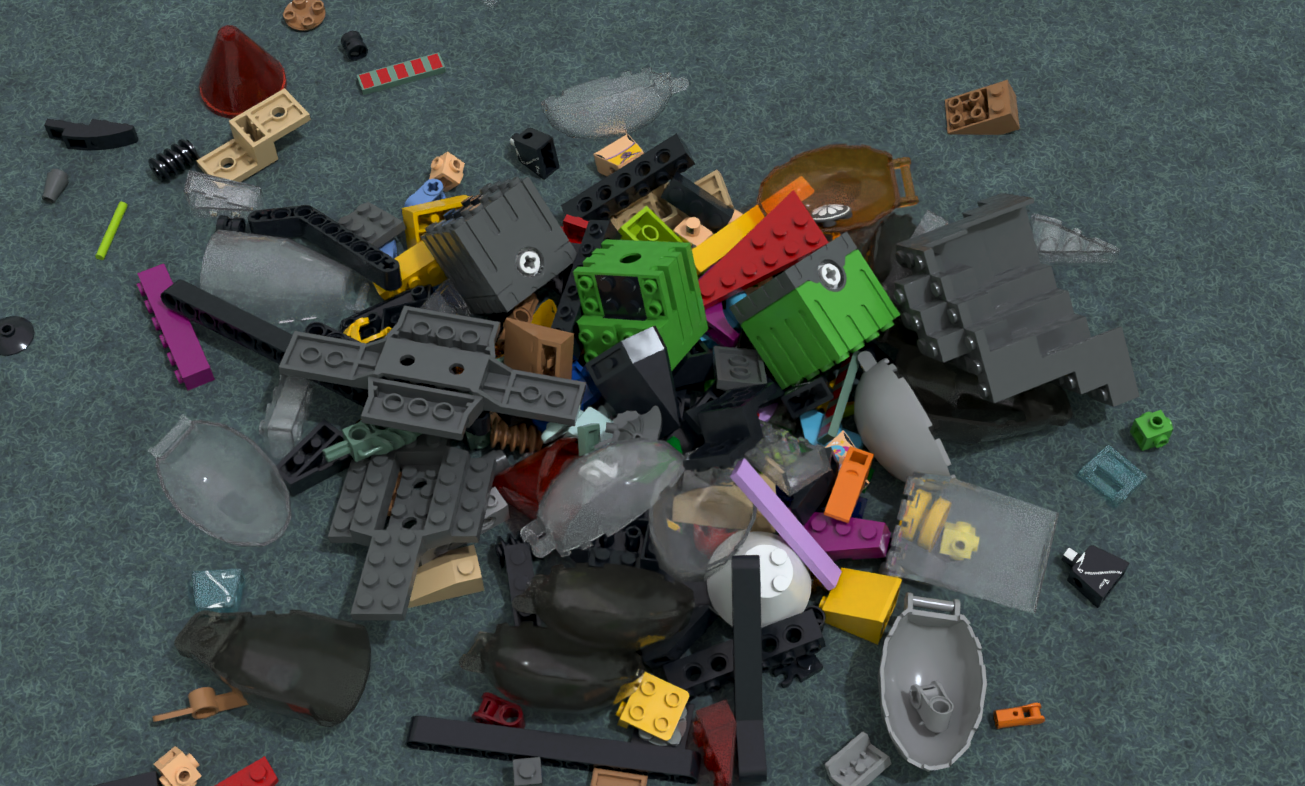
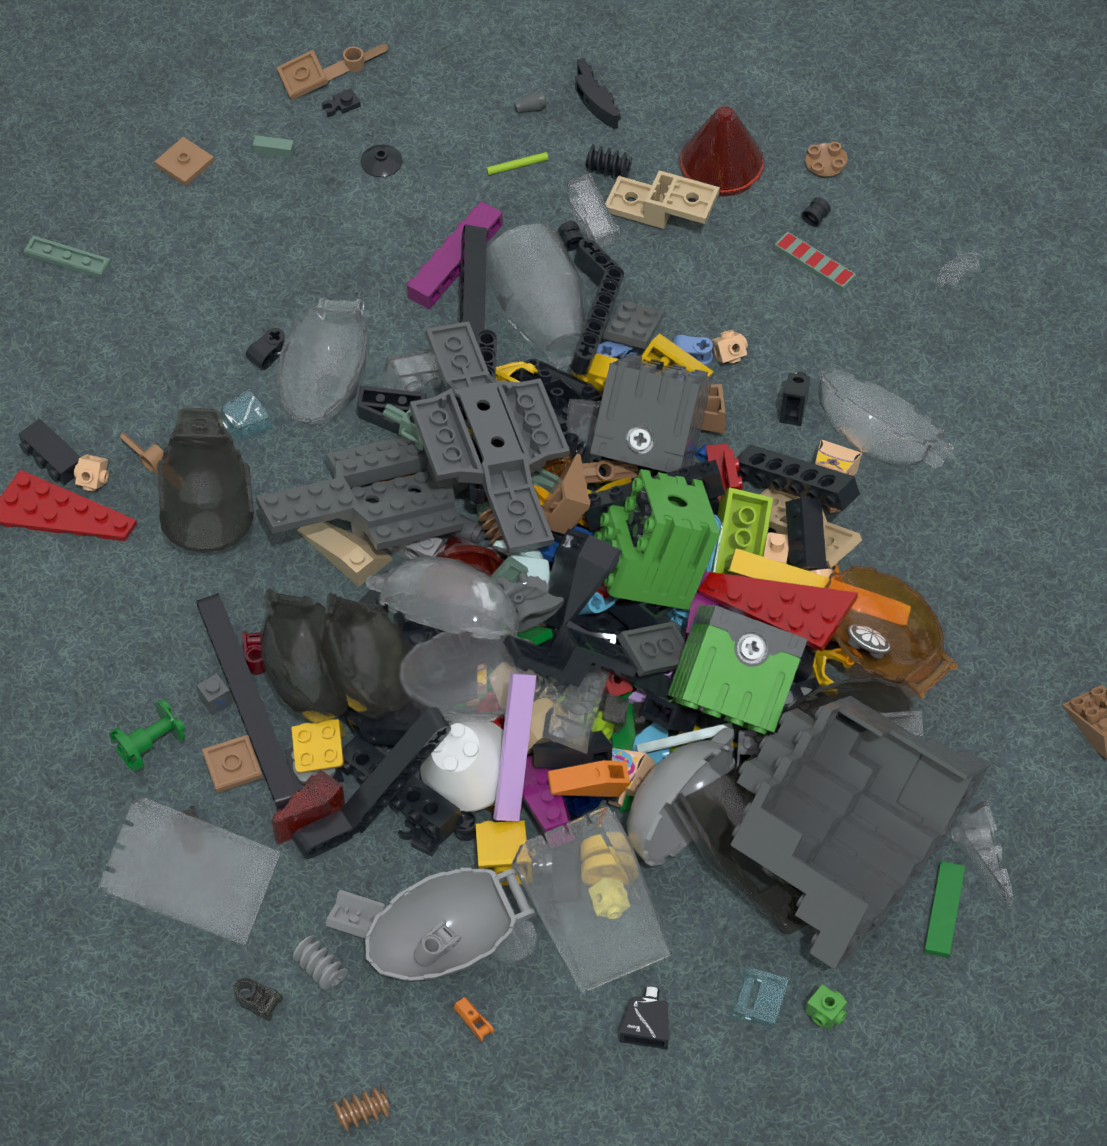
camera: 60 degrees right, 0 degrees up
(153, 537) = (265, 349): none -> black piece
(1096, 304) = (944, 909): none -> green tile

